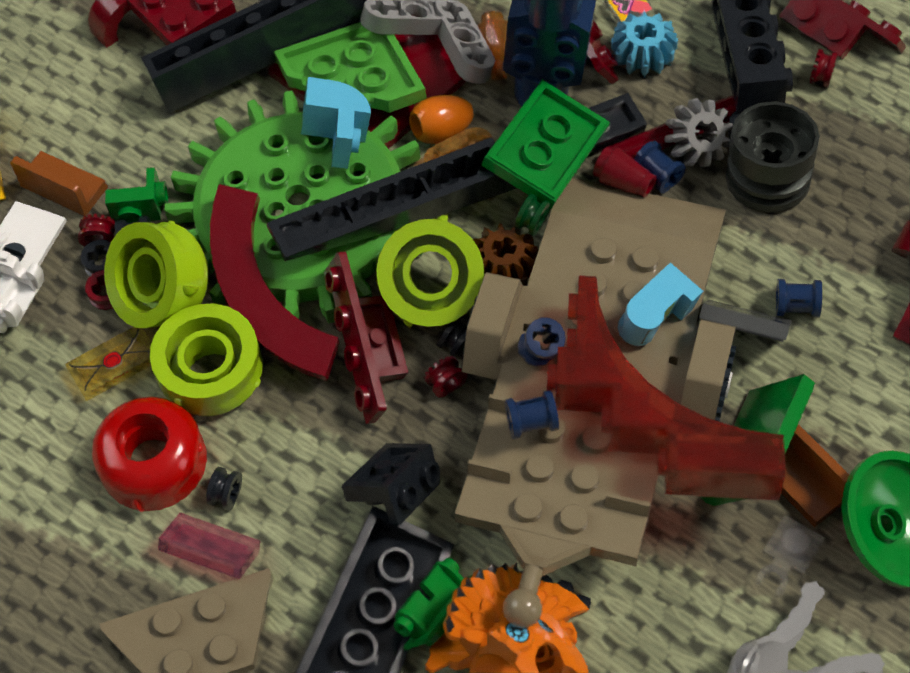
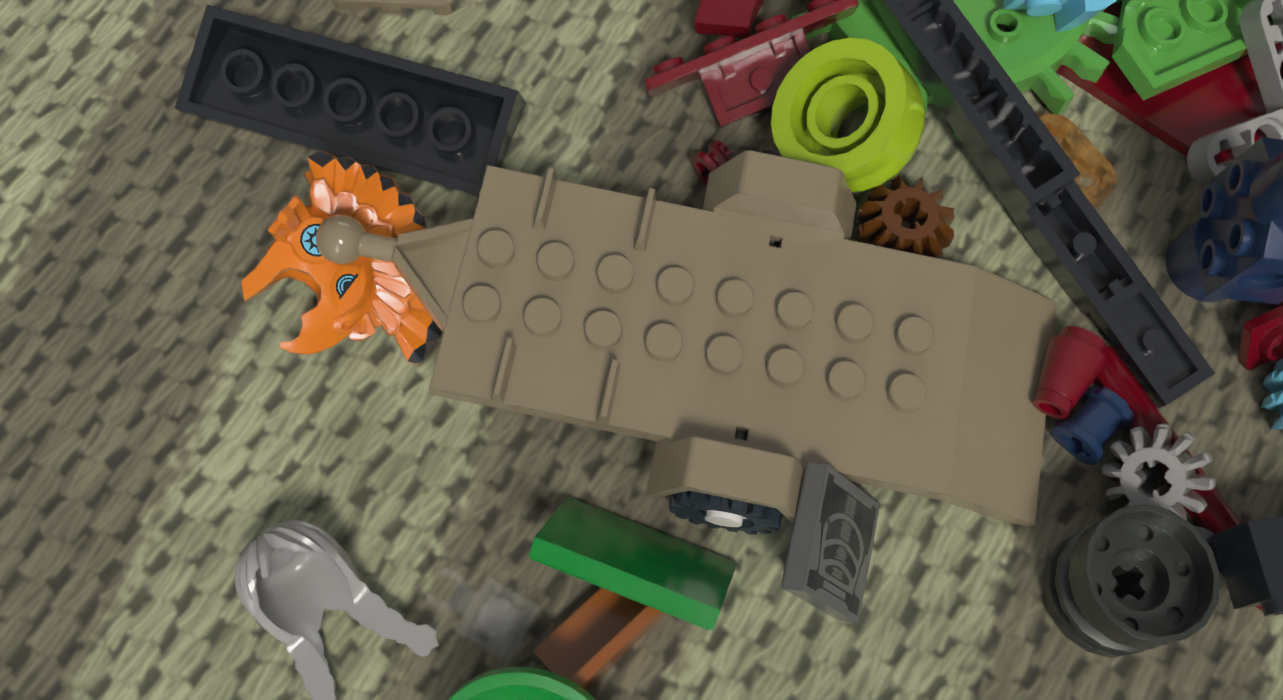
camera: 80 degrees right, 10 degrees up
(398, 477) = (557, 116): black bracket -> none
(423, 617) = (417, 177): green hinge -> none
(440, 118) = (1123, 129): orange animal -> none
(531, 414) = (611, 229): dark blue bush -> none
(532, 214) = (962, 239): dark green bush -> none
(545, 143) = (1087, 250): green tile -> none
(552, 334) = (716, 230): dark blue bush -> none
(665, 294) = (815, 393): medium azure leg -> none
(691, 450) = (616, 359): clear red arch -> none
(799, 298) = (891, 629): dark blue bush -> none

